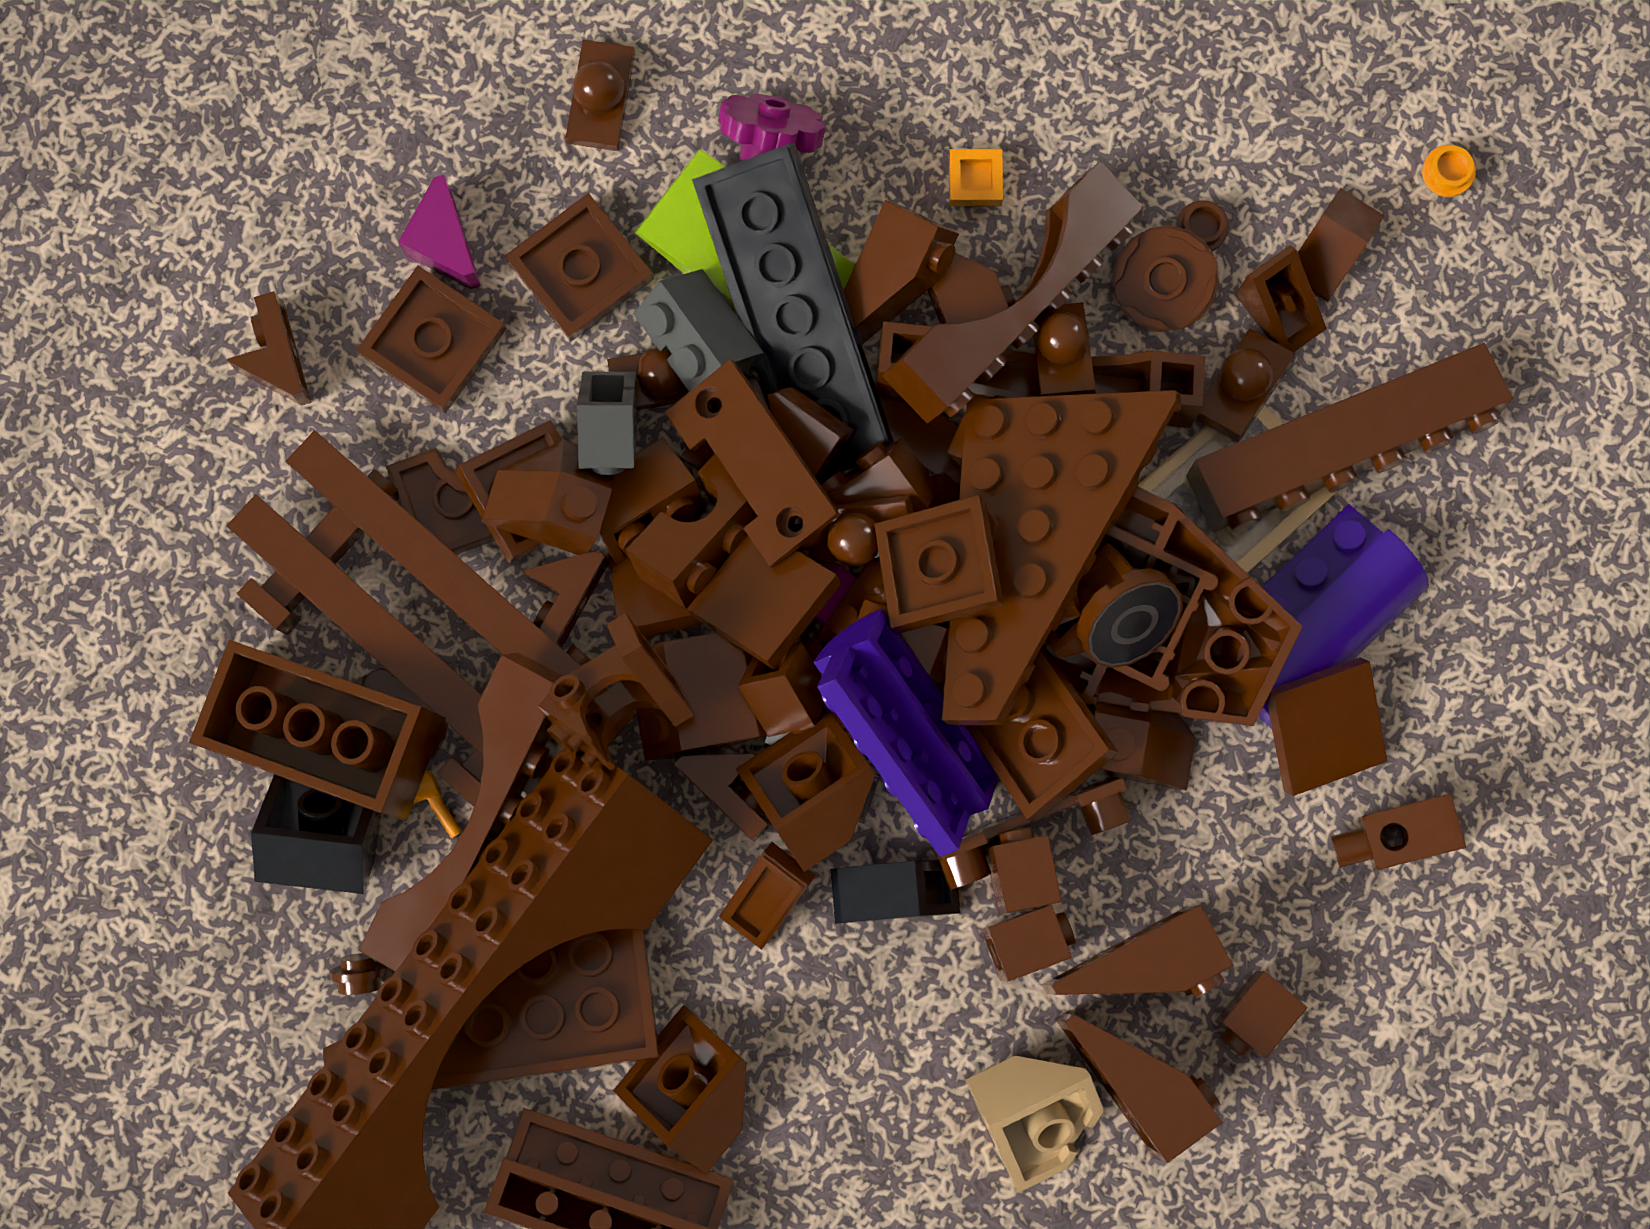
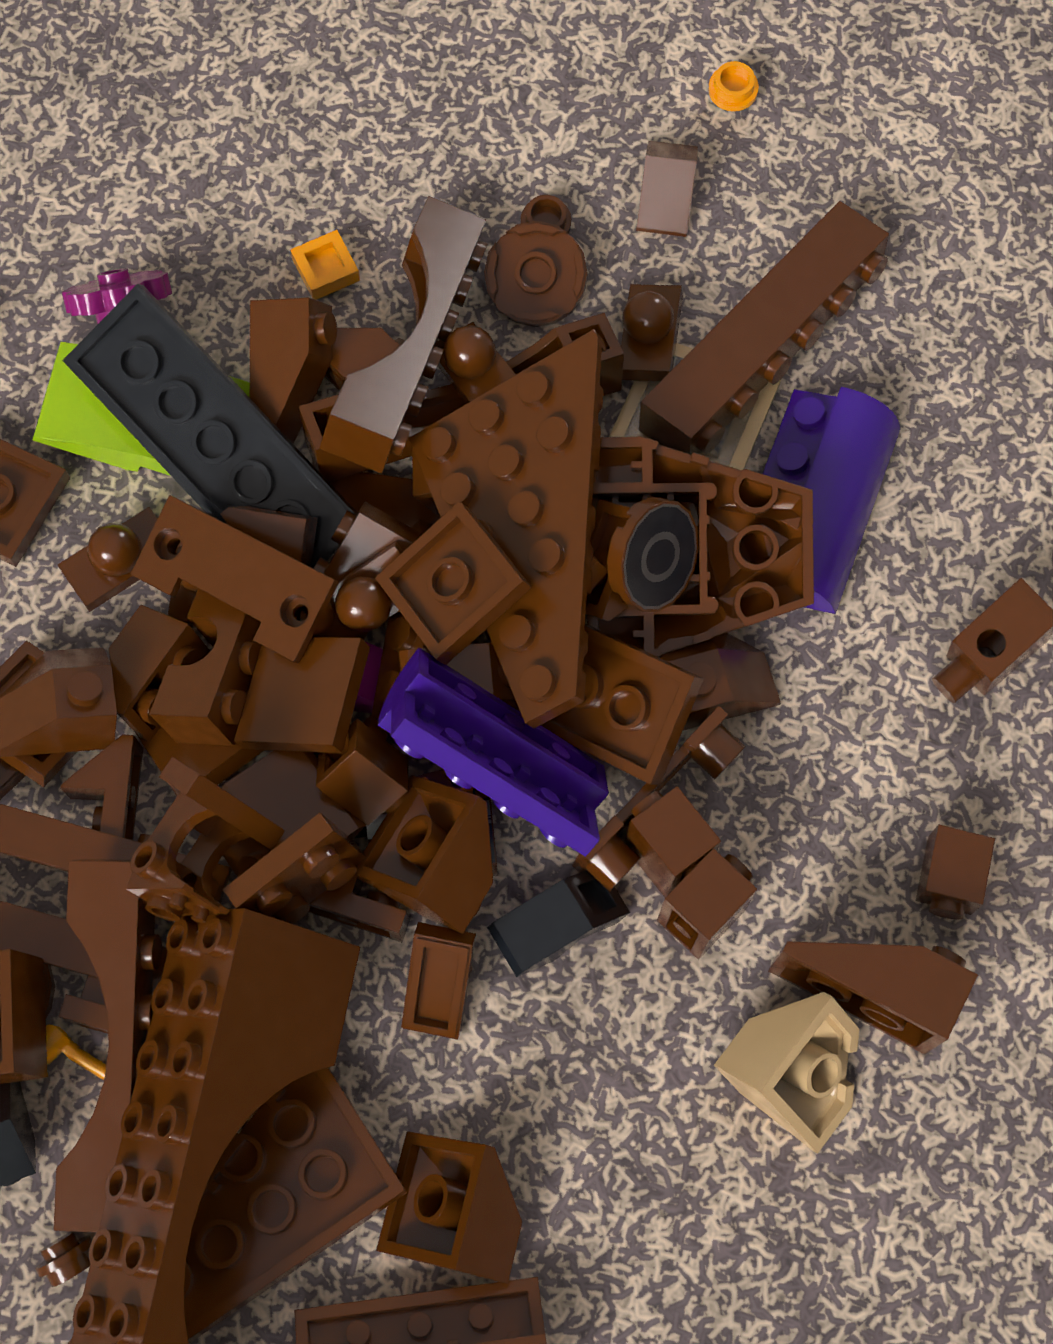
camera: 25 degrees left, 10 degrees down
(607, 421) = (80, 611): dark grey piece -> none
(674, 758) = (297, 871): none -> reddish brown plate
(696, 327) = (123, 489): dark grey piece -> none
(1165, 957) = (847, 851): reddish brown slope -> none
(1282, 301) = (645, 246): reddish brown slope -> none
(1326, 726) = (877, 583): reddish brown tile -> none

